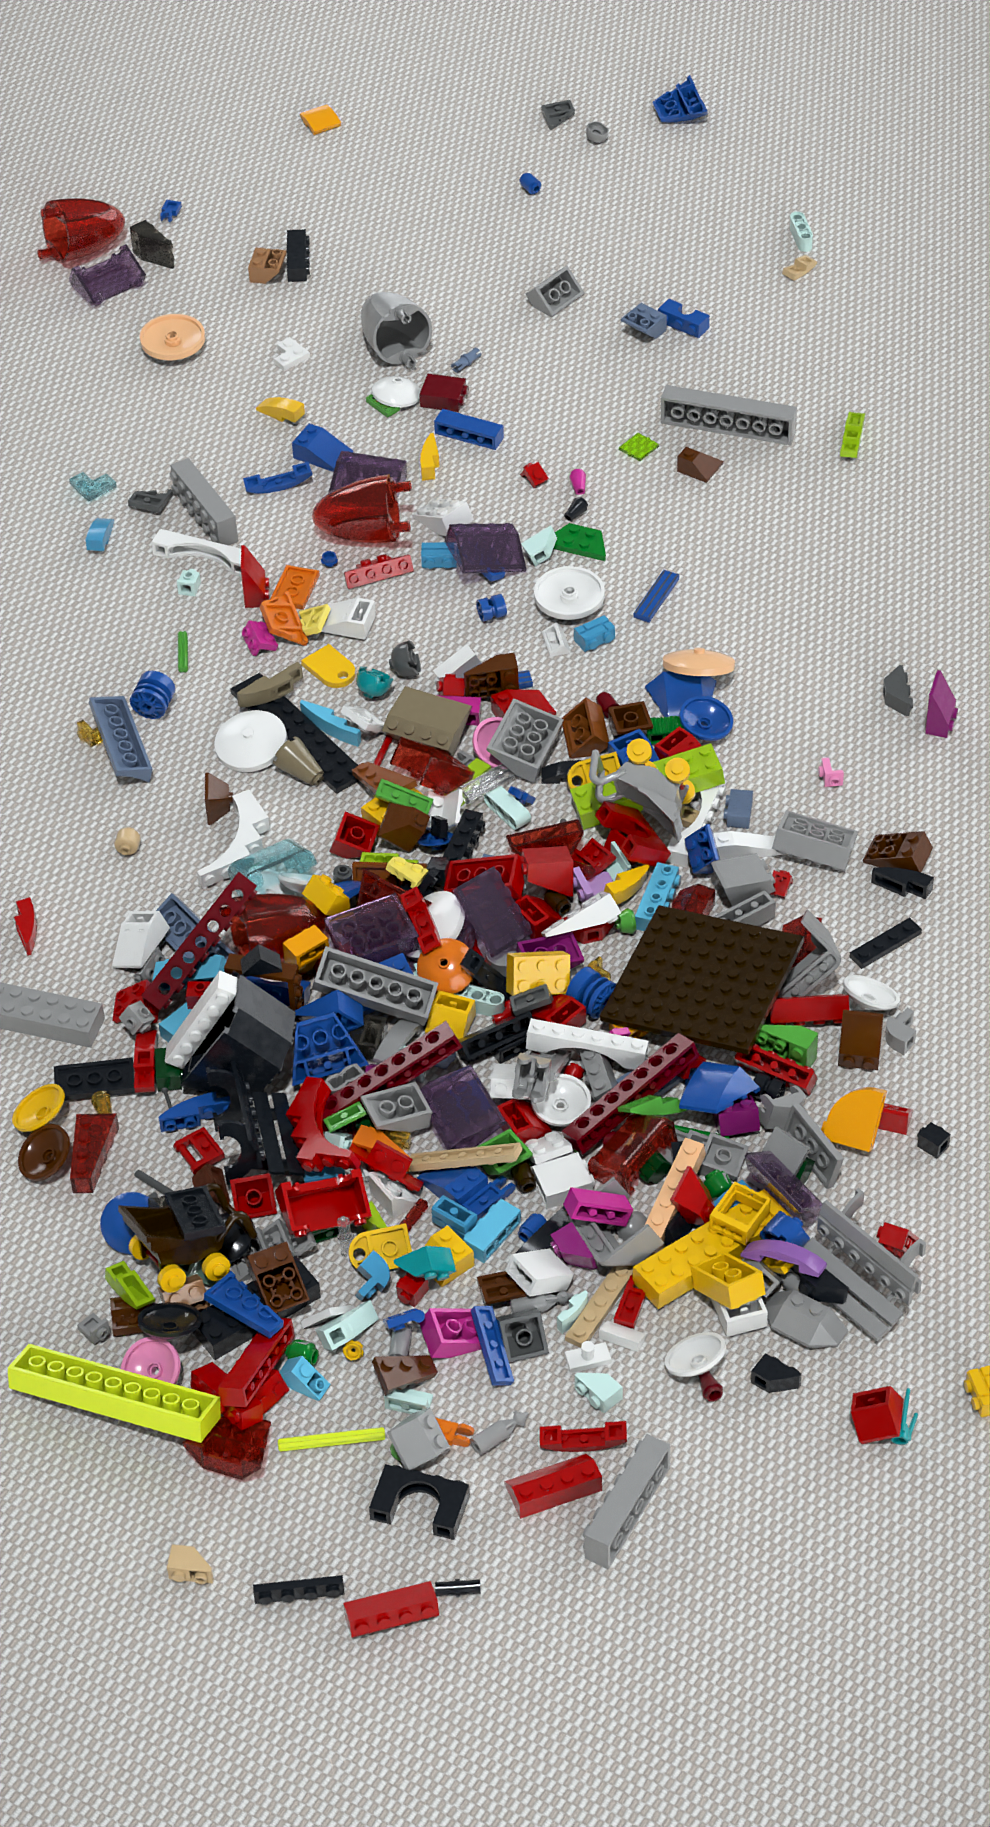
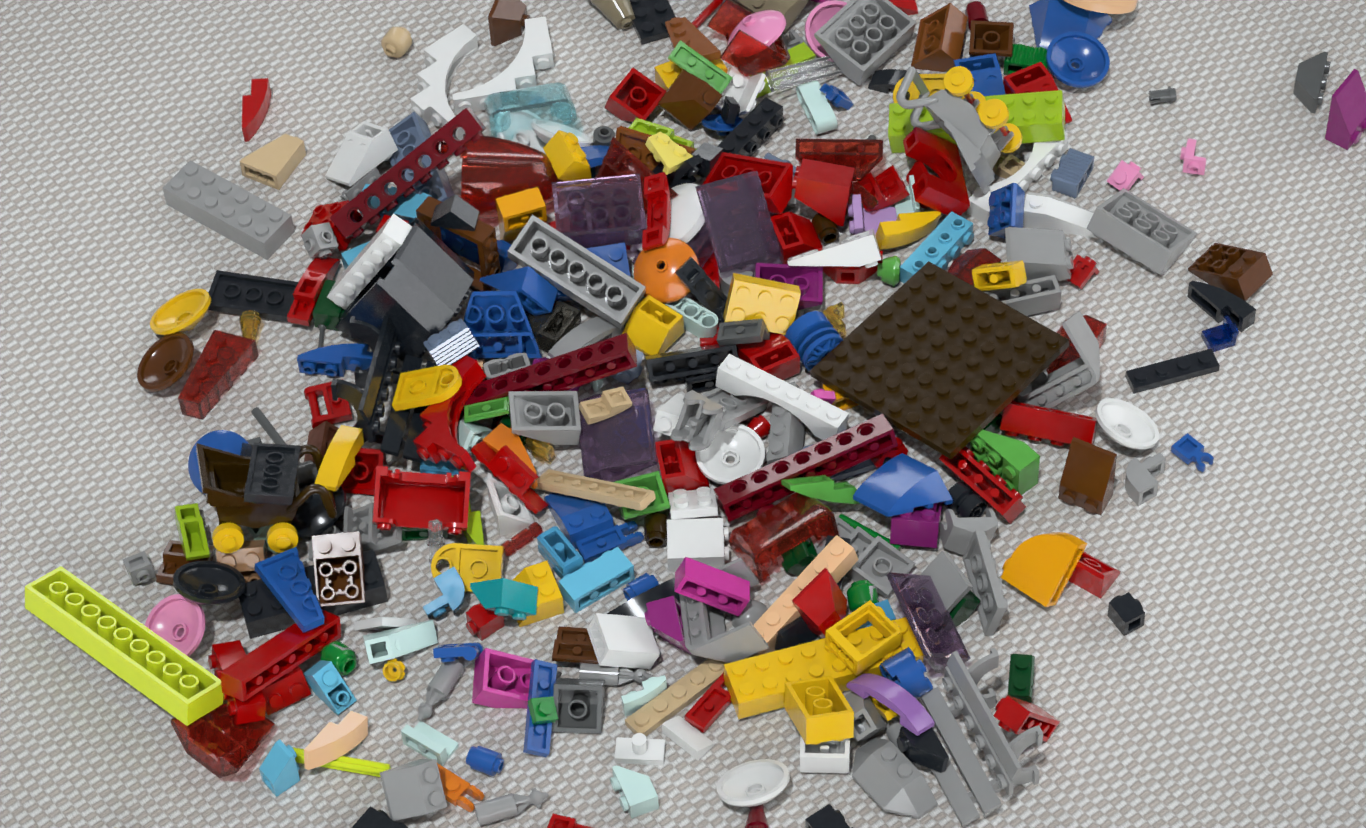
camera: 20 degrees right, 5 degrees up
(63, 964) = (274, 161): none -> tan slope
(173, 847) = (442, 62): none -> white arch
(237, 1186) = (340, 457): none -> yellow slope
(287, 1111) = (426, 387): none -> yellow tile
(293, 1456) = (280, 768): none -> medium azure slope
(295, 1070) = (451, 343): none -> brick
(332, 1419) = (336, 740): none -> light nougat slope
(400, 1371) = (432, 708): reddish brown wing -> none
(444, 749) = (762, 25): none -> bright pink dish
(447, 1085) = (608, 405): none -> tan slope
(463, 1401) = (485, 760): none -> blue brick
(496, 1346) = (542, 710): none -> green plate
(723, 901) = (999, 275): none -> yellow brick
(782, 800) = (1125, 175): none -> bright pink bracket
(785, 730) = (1163, 95): none -> dark grey pin
(873, 1213) = (1021, 676): none -> dark green brick
(913, 905) = (1221, 336): none -> clear blue bracket
(929, 1000) = (1191, 450): none -> blue plate

